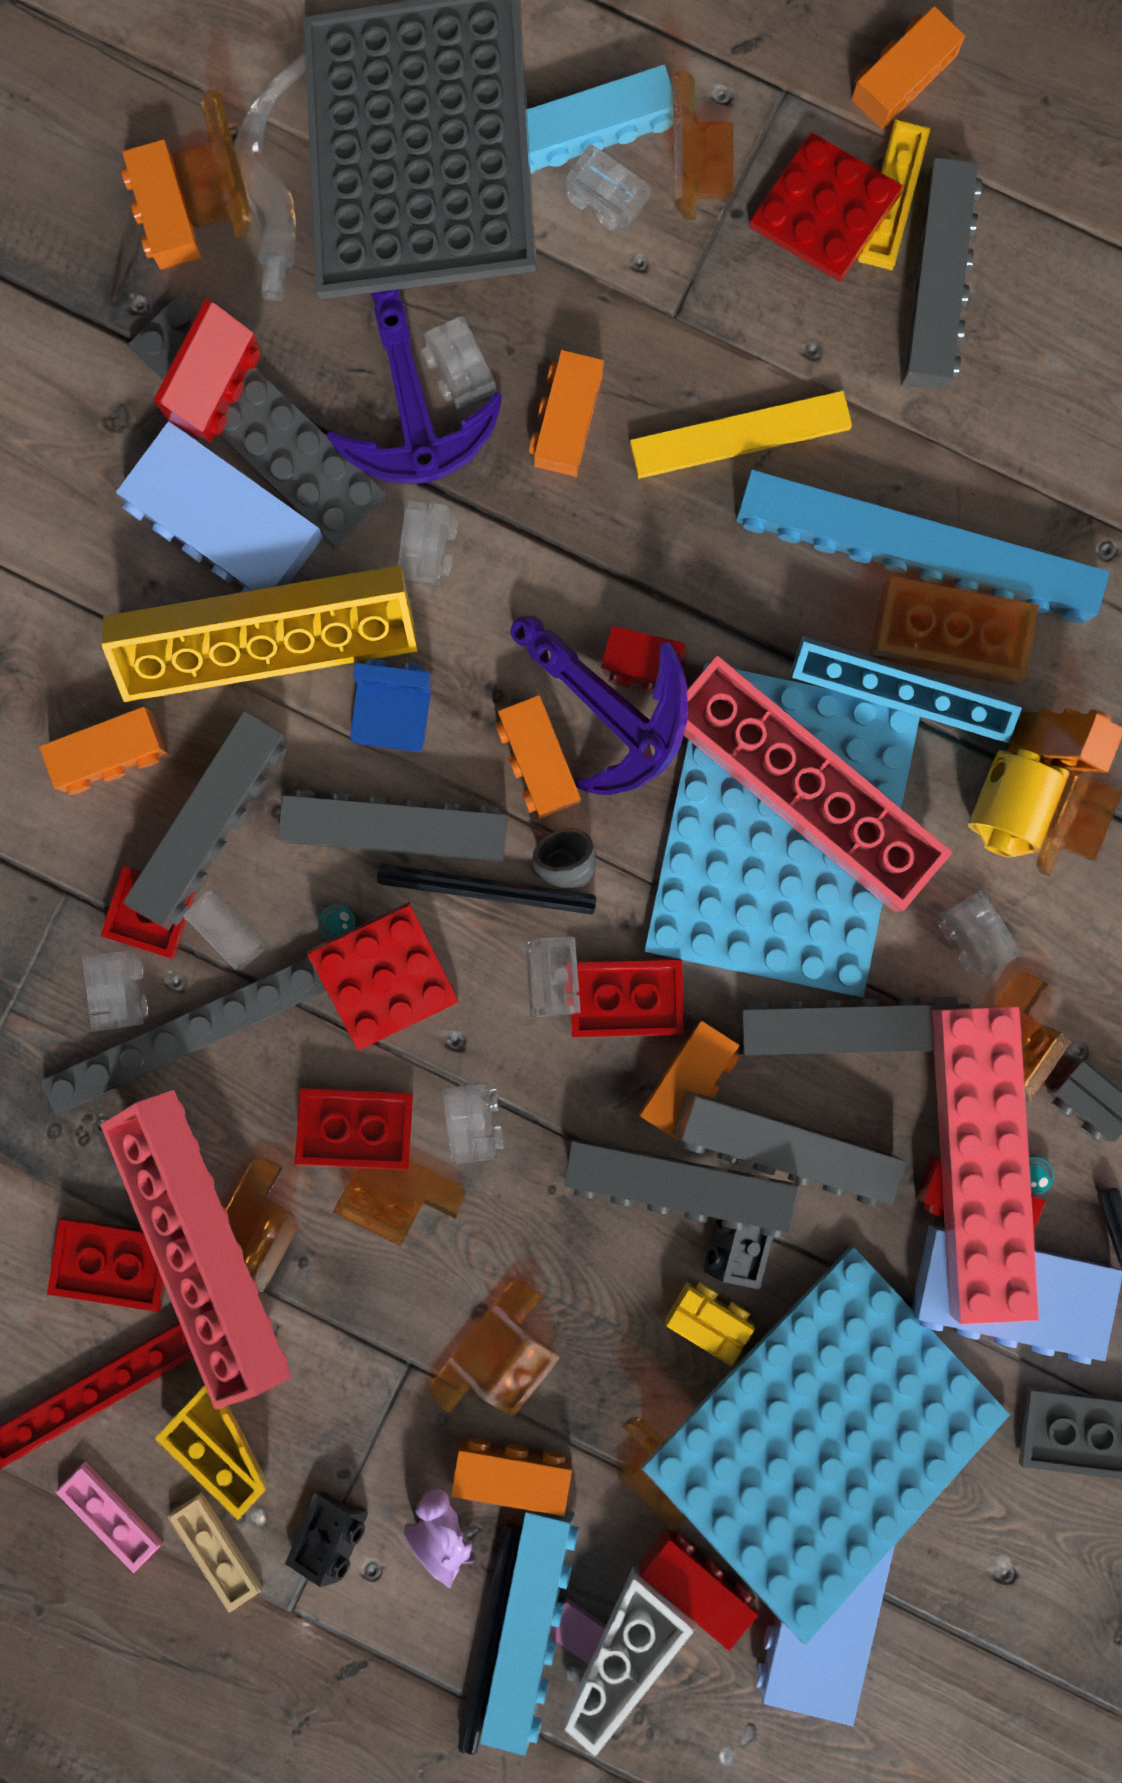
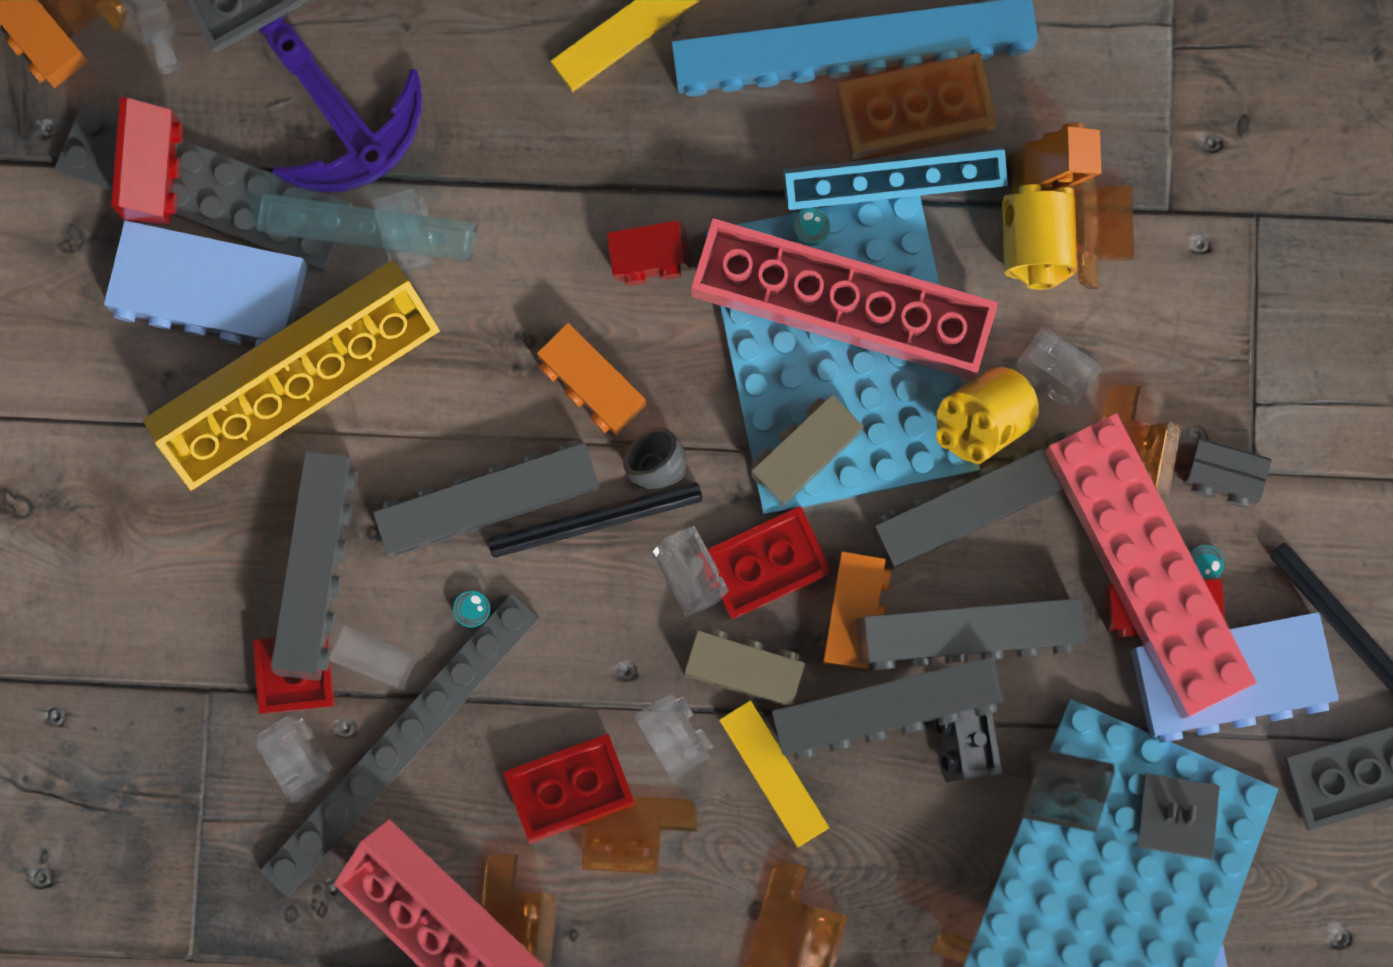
camera: 20 degrees left, 5 degrees down
(103, 751) = (190, 544): orange brick -> none
(383, 976) = (535, 637): red plate -> none
(390, 524) = (367, 227): none -> clear light blue tile
(391, 705) = (436, 390): blue bracket -> none
(459, 363) = (366, 58): clear brick -> none
(549, 1196) = (774, 774): none -> yellow tile
(565, 1088) = (745, 667): none -> dark tan brick
(567, 413) = (483, 61): orange brick -> none
(638, 732) = (667, 315): dark purple piece -> none
(709, 910) = (805, 449): none -> dark tan brick
(709, 1322) = (970, 823): yellow brick -> none
(806, 702) = (811, 226): none -> teal tile
(815, 1339) = (1066, 789): none -> clear smoke bracket
(893, 952) = (986, 414): none -> yellow cylinder
(907, 1405) = (1178, 816): none -> dark grey piece

